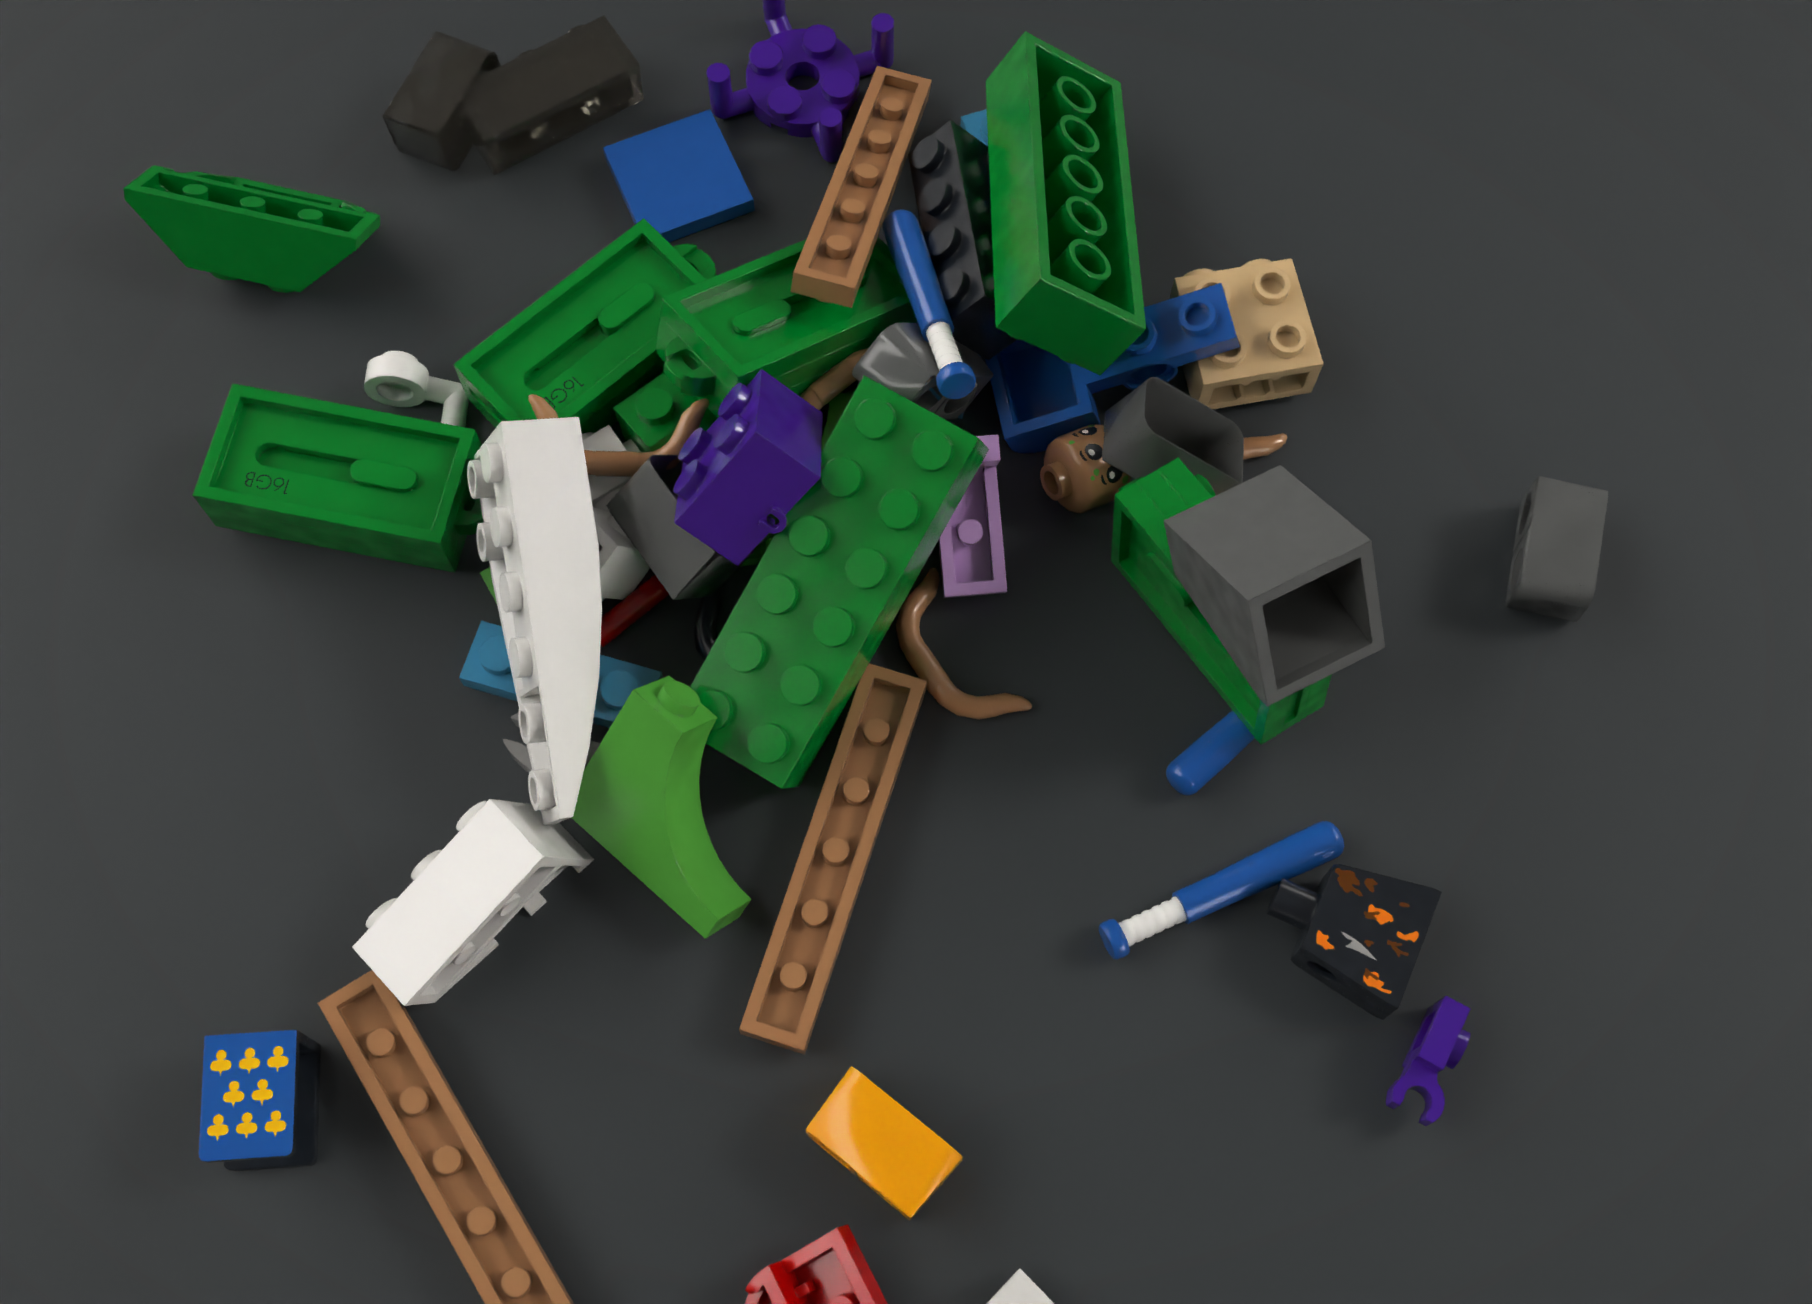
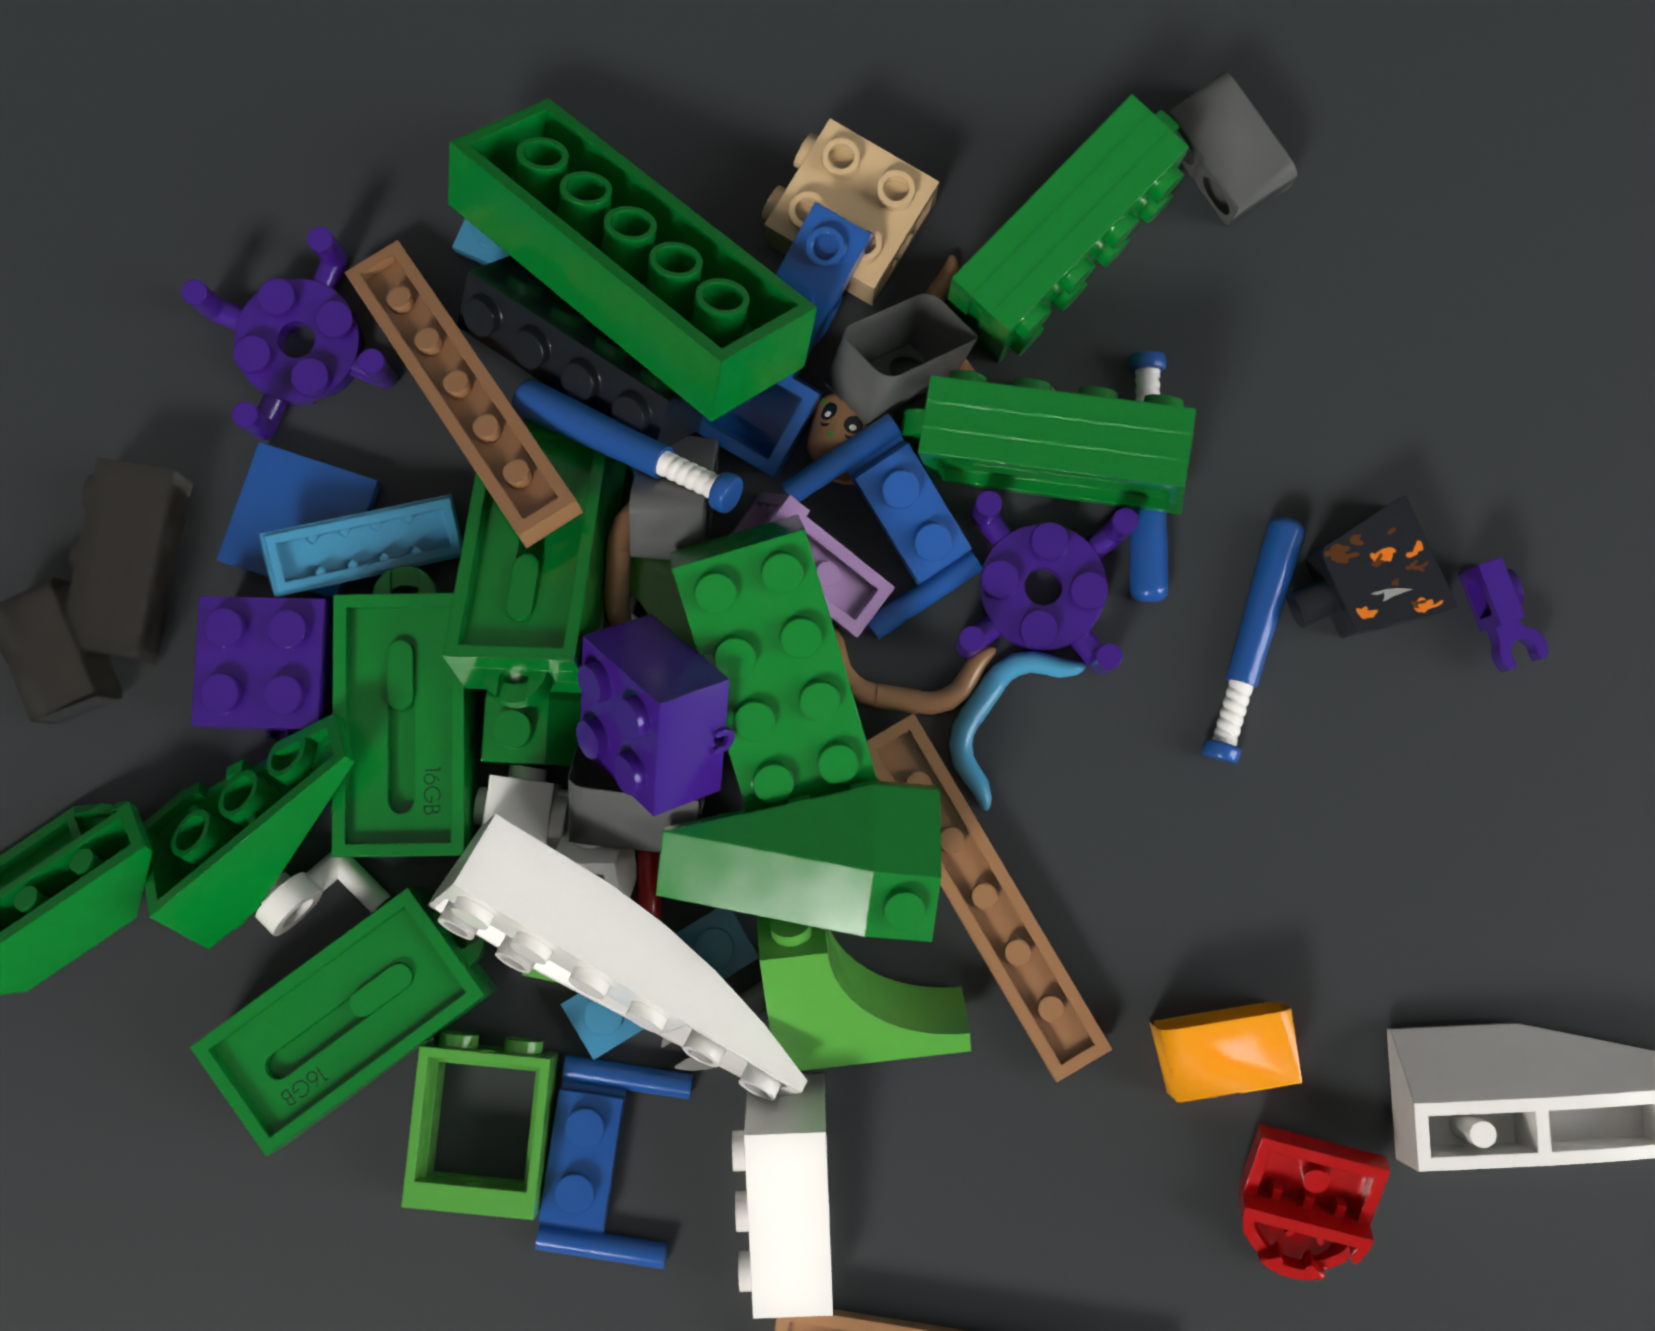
camera: 45 degrees left, 15 degrees up
(311, 598) = (468, 1192): none -> bright green window
(376, 736) = (585, 1159): none -> blue plate
(403, 299) = (231, 841): none -> green wedge
(549, 222) = (263, 664): none -> dark purple brick
(626, 462) = (541, 794): medium nougat animal -> none
(689, 210) = (361, 545): none -> dark azure plate
(754, 680) = (830, 862): none -> green wedge
(981, 731) = (983, 700): none -> dark azure animal
(1068, 549) = (906, 510): none -> blue plate
(1116, 664) = (1070, 560): none -> dark purple plate
(1279, 581) = (1114, 410): dark grey slope -> none
(1399, 473) = (1067, 227): none -> green piece

